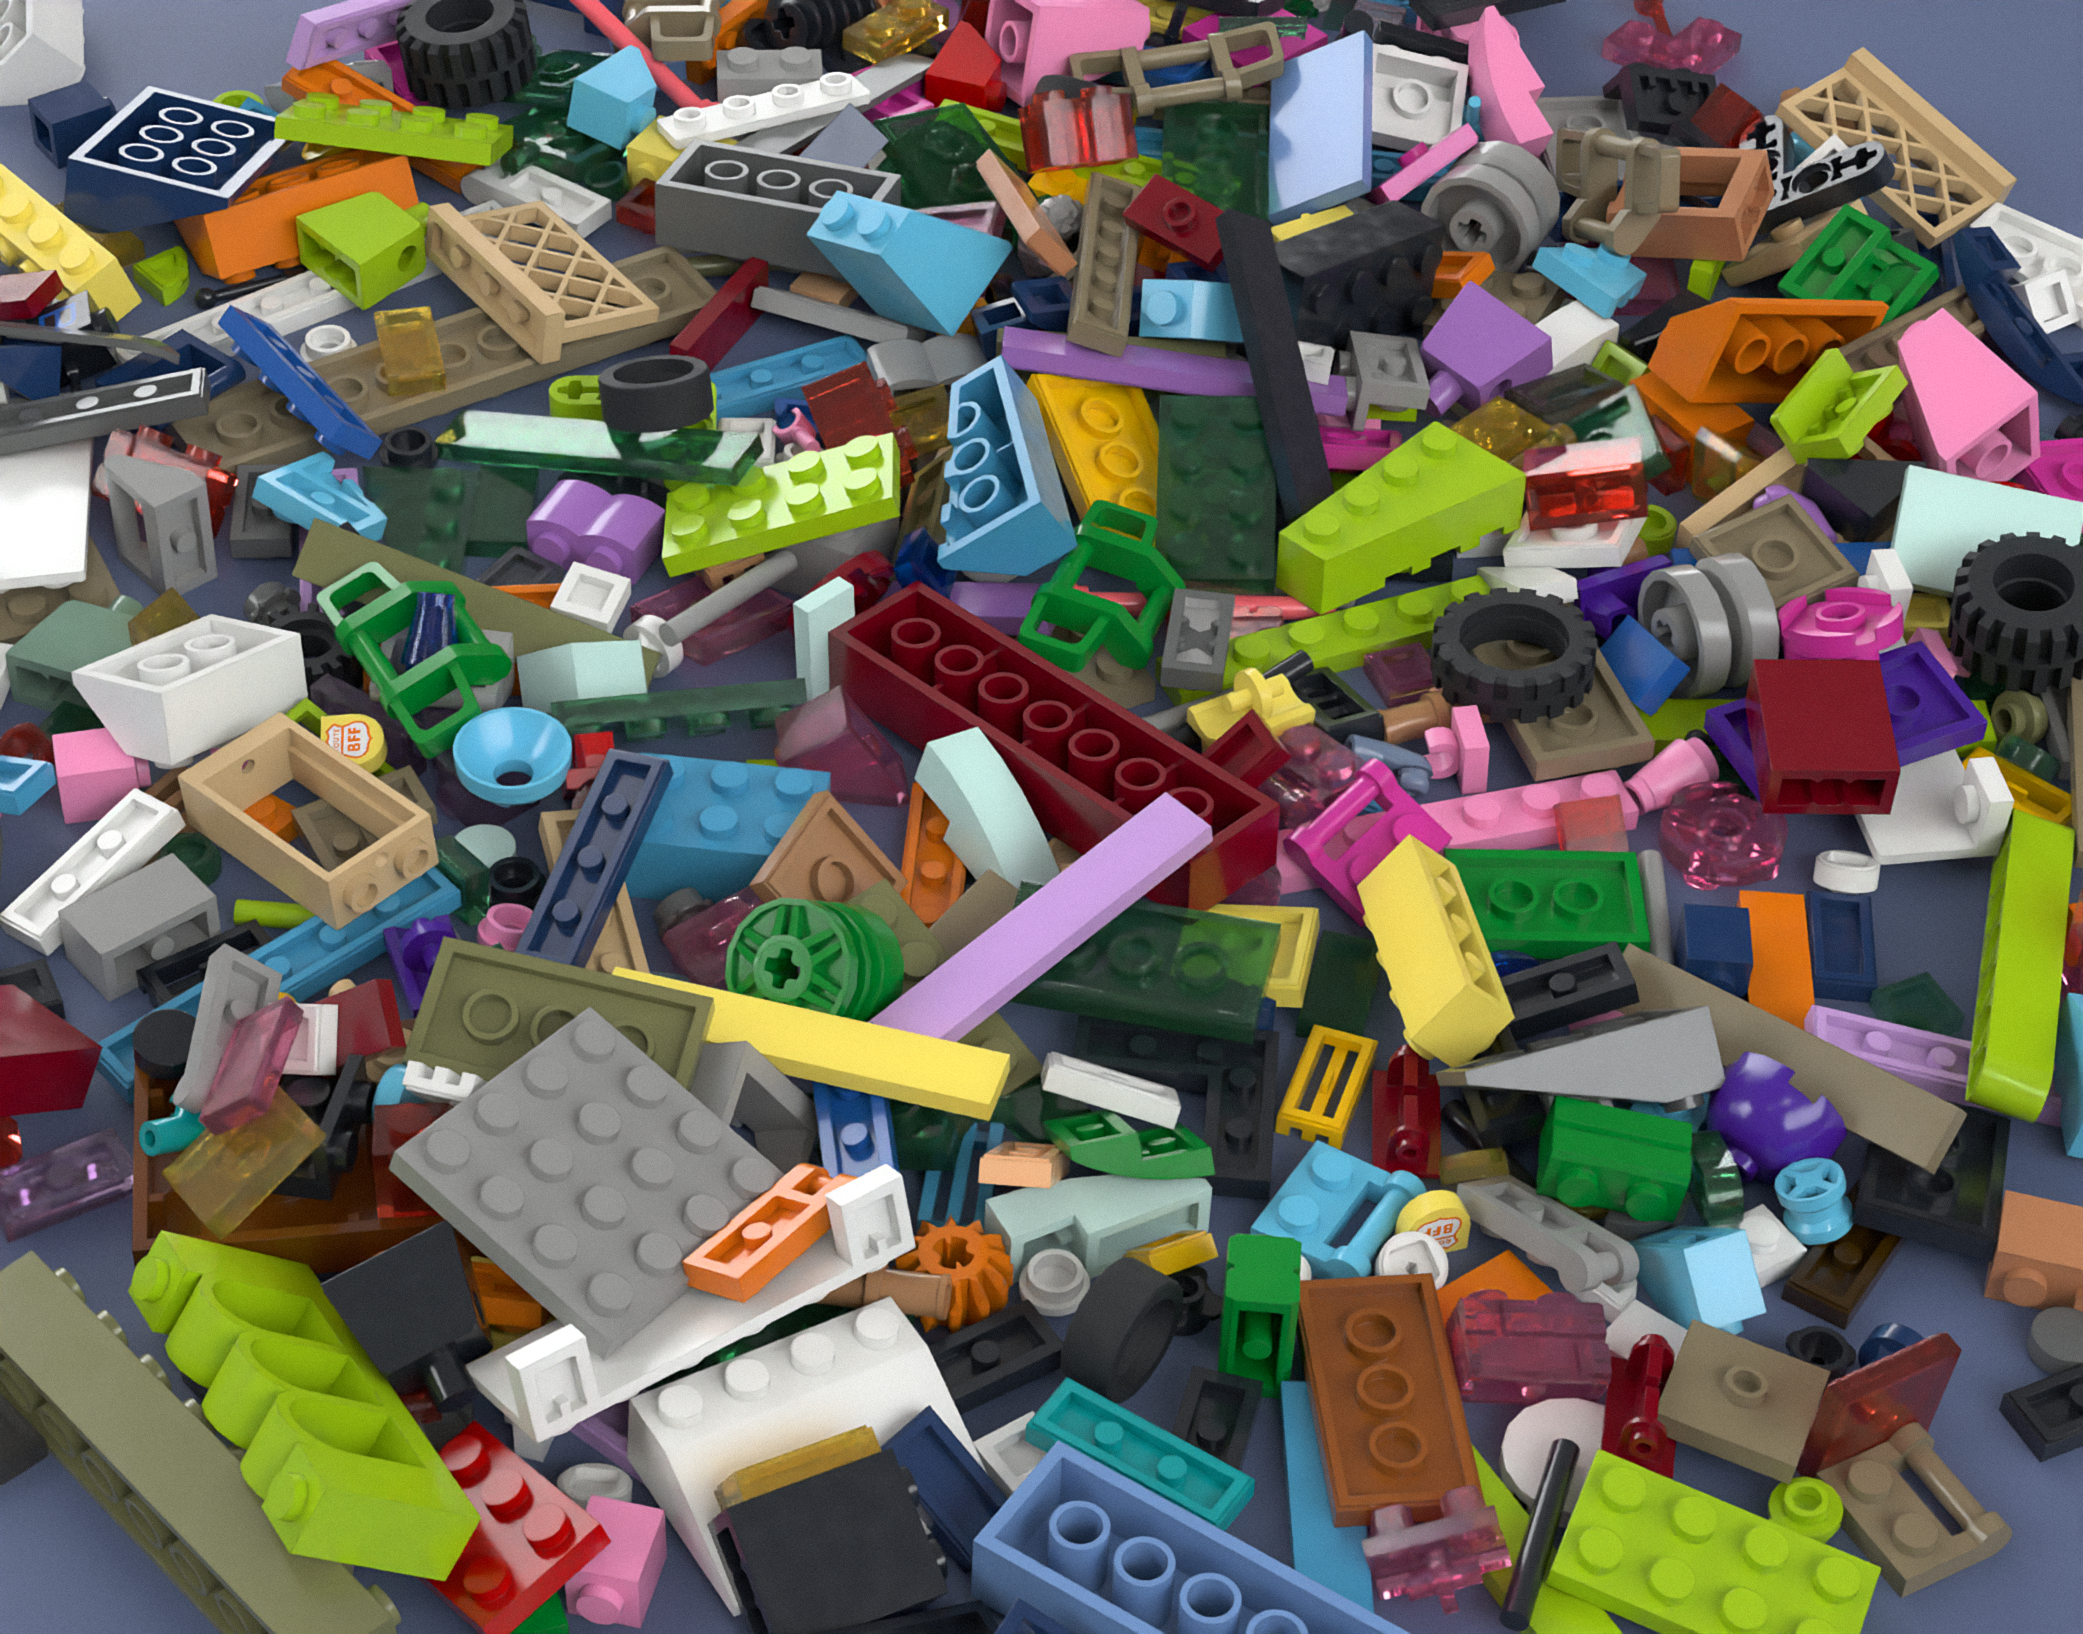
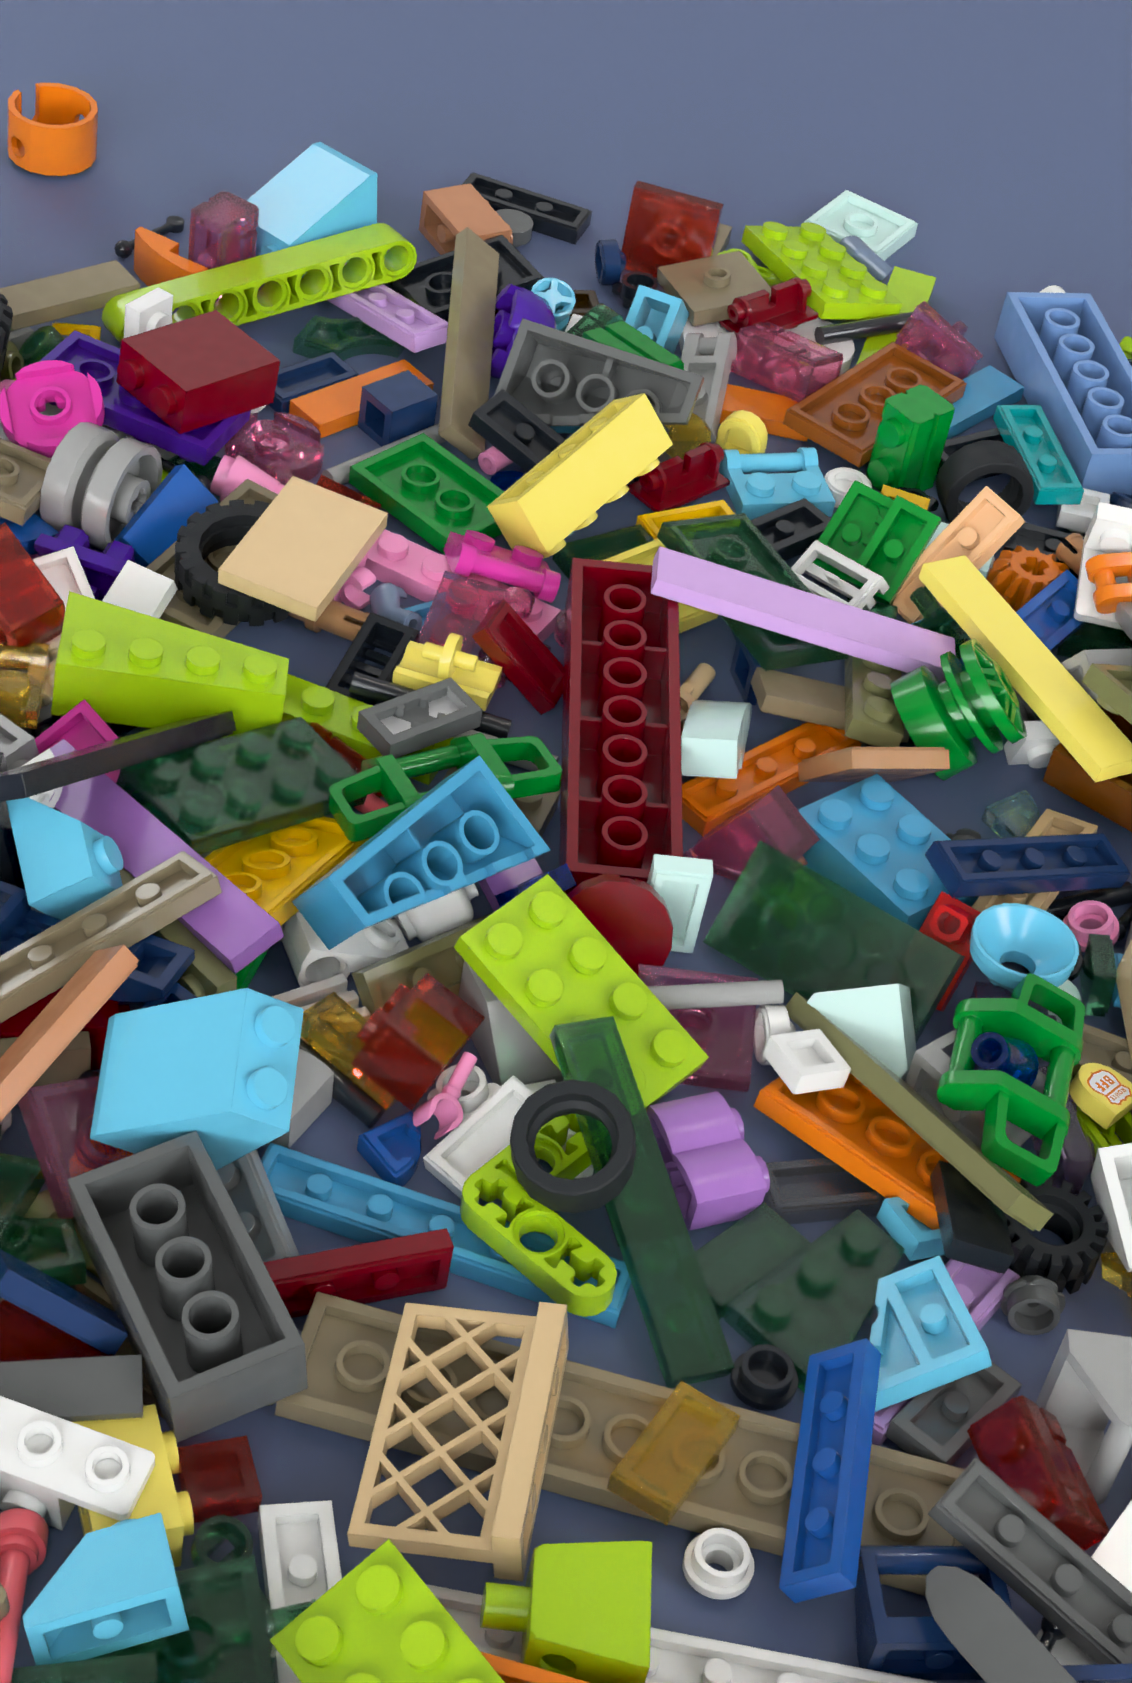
camera: 140 degrees left, 0 degrees up
(703, 940) = (985, 807): clear pink hips -> none
(1400, 674) = (298, 650): clear pink tile -> none
(1413, 1254) = (781, 437): white tile -> none
(1470, 652) = (303, 548): none -> tan tile

